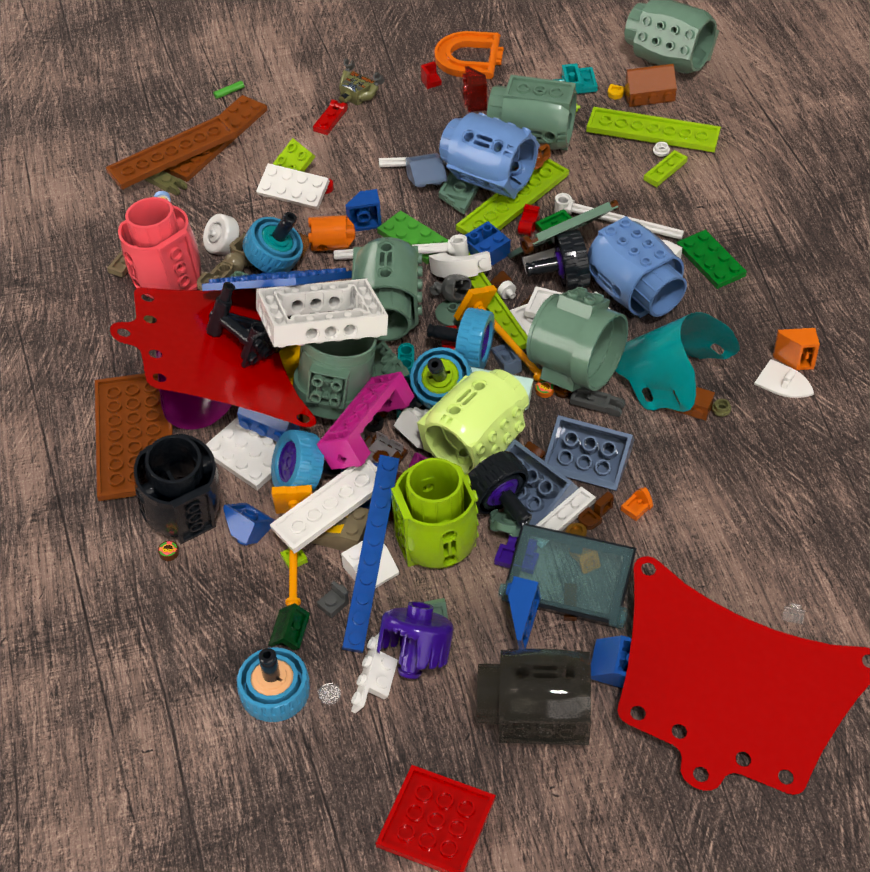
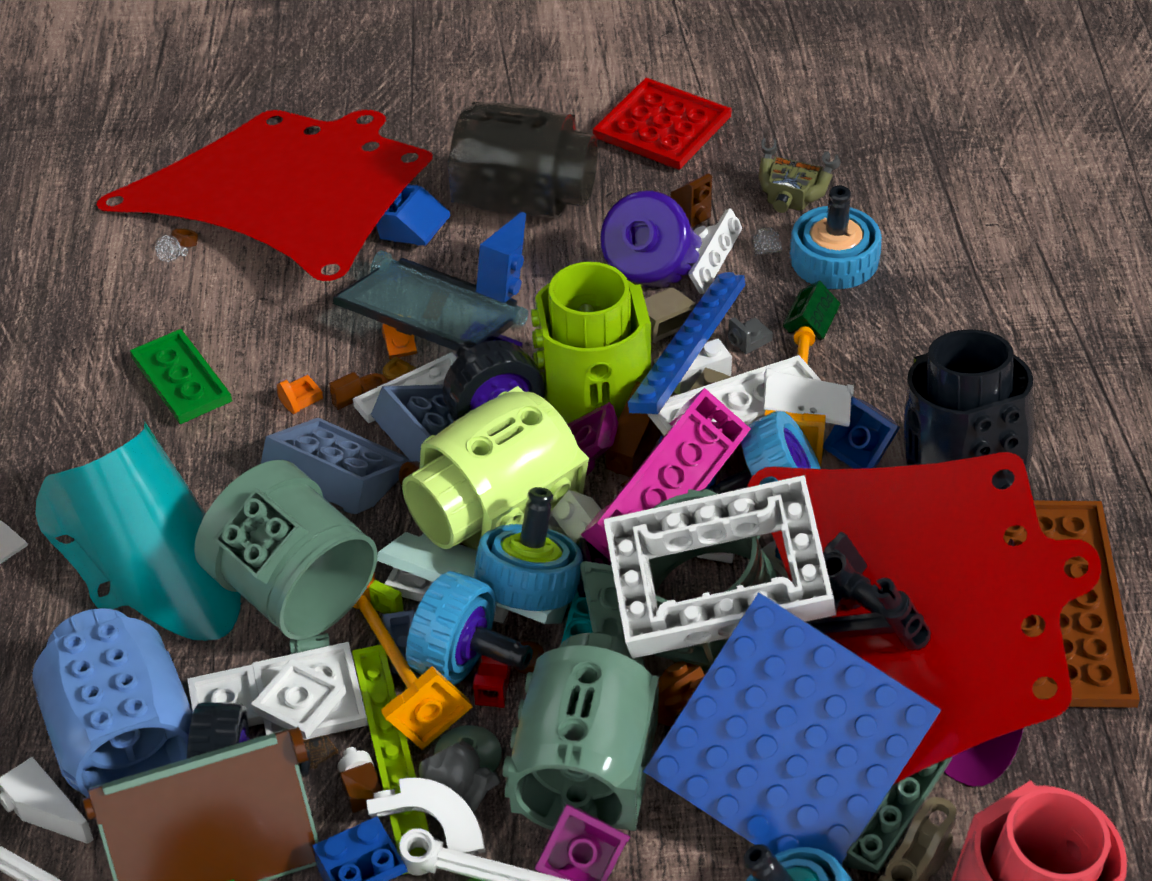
camera: 170 degrees left, 5 degrees down
(291, 510) = (794, 392): none -> white door
(311, 755) = (792, 182): none -> olive torso
(393, 713) = (695, 199): none -> reddish brown slope
(398, 593) = (667, 312): none -> dark tan brick
(523, 370) = (385, 598): none -> lime tile
(723, 502) = (180, 376): none -> green plate
(788, 623) = (185, 237): none -> reddish brown tile

